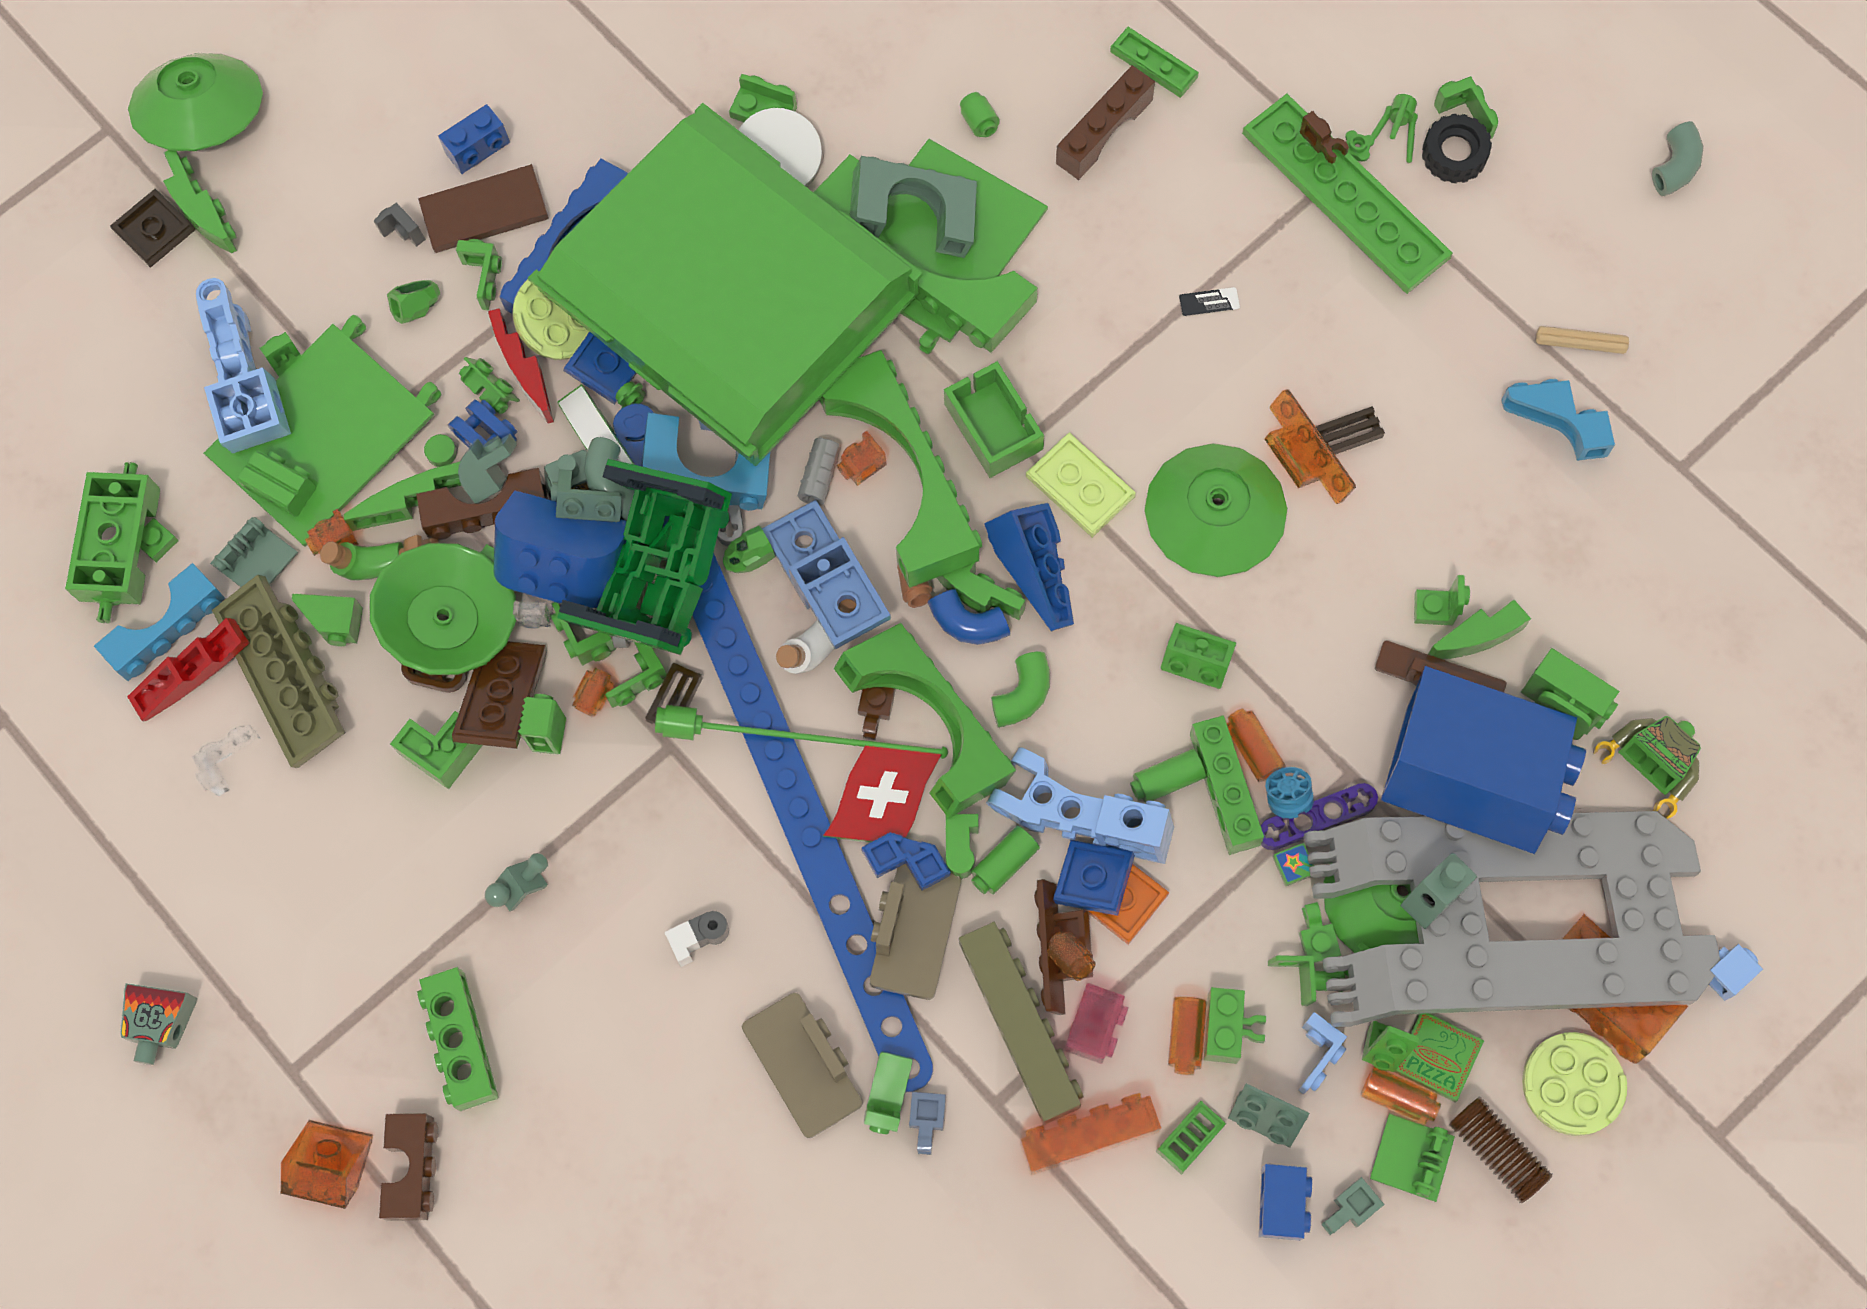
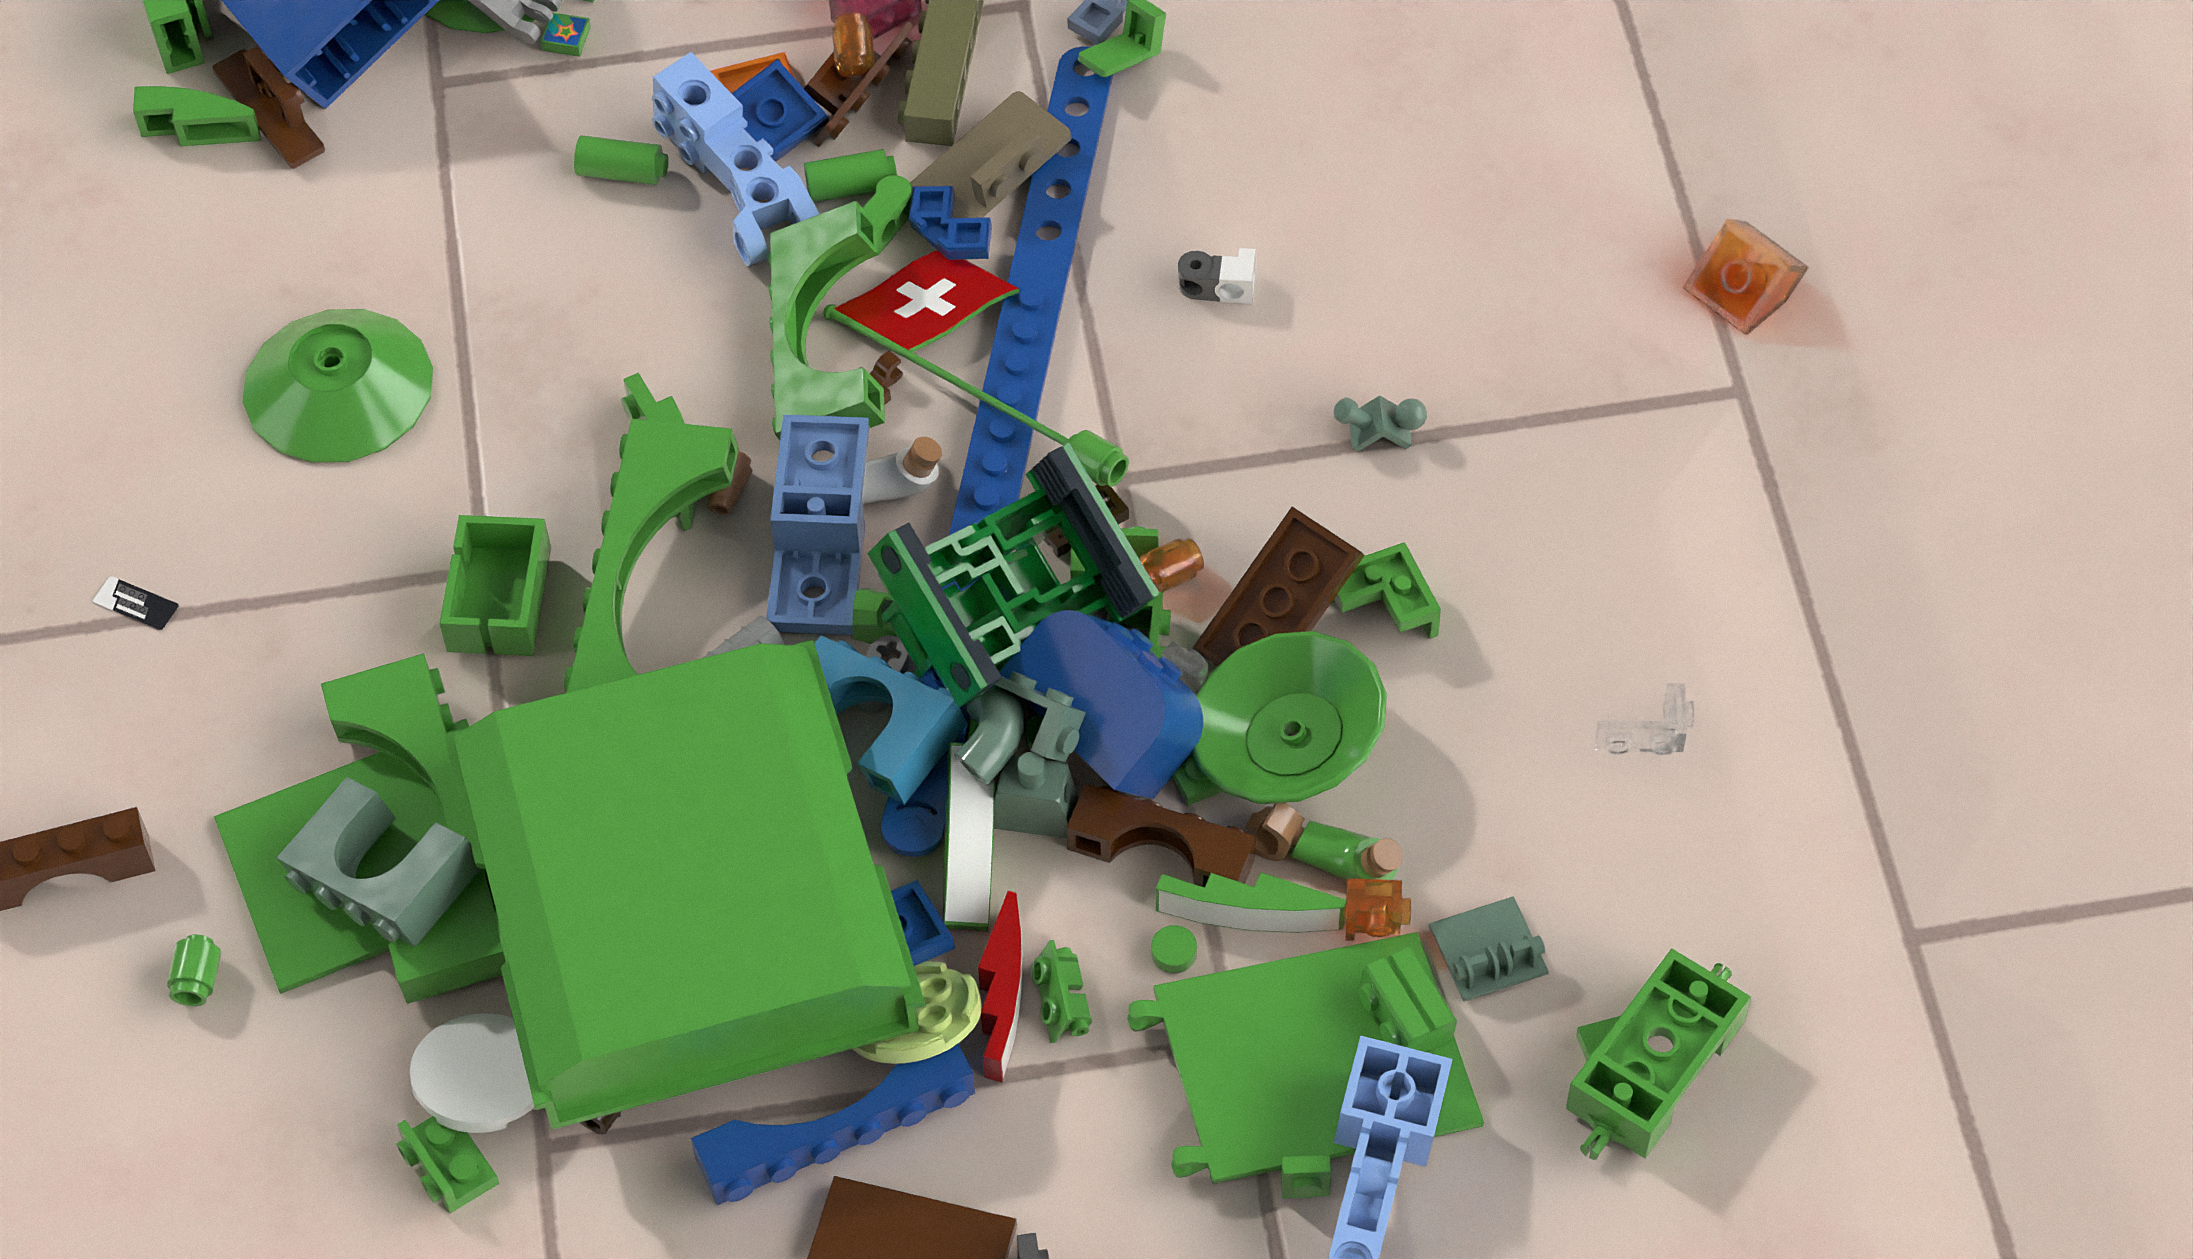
camera: 150 degrees left, 15 degrees down
(154, 1019) = (1868, 501): torso -> none
(188, 670) = (1648, 851): red slope -> none
(190, 601) = (1701, 912): dark azure arch -> none
(283, 672) = (1526, 783): olive plate -> none
(332, 616) = (1430, 814): bright green slope -> none
(412, 300) = (1087, 1156): bright green rock -> none
(412, 1195) = (1671, 206): reddish brown arch -> none
(479, 468) = (1129, 860): sand green brick -> none
(480, 1085) = (1537, 313): bright green brick -> none
(484, 255) = (959, 1169): bright green bracket -> none
(484, 415) = (1092, 951): blue brick -> none
(542, 724) = (1245, 534): bright green brick -> none
(630, 394) = (897, 867): bright green plate -> none
(803, 1064) = (1189, 120): dark tan bracket -> none
(862, 460) = (678, 637): clear orange brick -> none
(967, 626) = (696, 397): blue cylinder -> none
(1028, 550) = (580, 433): blue wedge -> none
(1029, 693) = (696, 305): bright green cylinder -> none
(1080, 484) = (453, 478): yellowish green tile -> none
(1198, 656) = (486, 249): bright green bracket -> none
(1226, 785) = (571, 111): bright green brick -> none
(1254, 744) = (509, 140): clear orange brick -> none
(1289, 794) = (515, 78): dark azure wheel -> none
(1305, 451) = (192, 376): clear orange bracket -> none
(1319, 820) = (503, 64): dark purple beam -> none
(1372, 421) = (128, 372): dark brown tile -> none
(1441, 606) = (196, 158): bright green bracket -> none

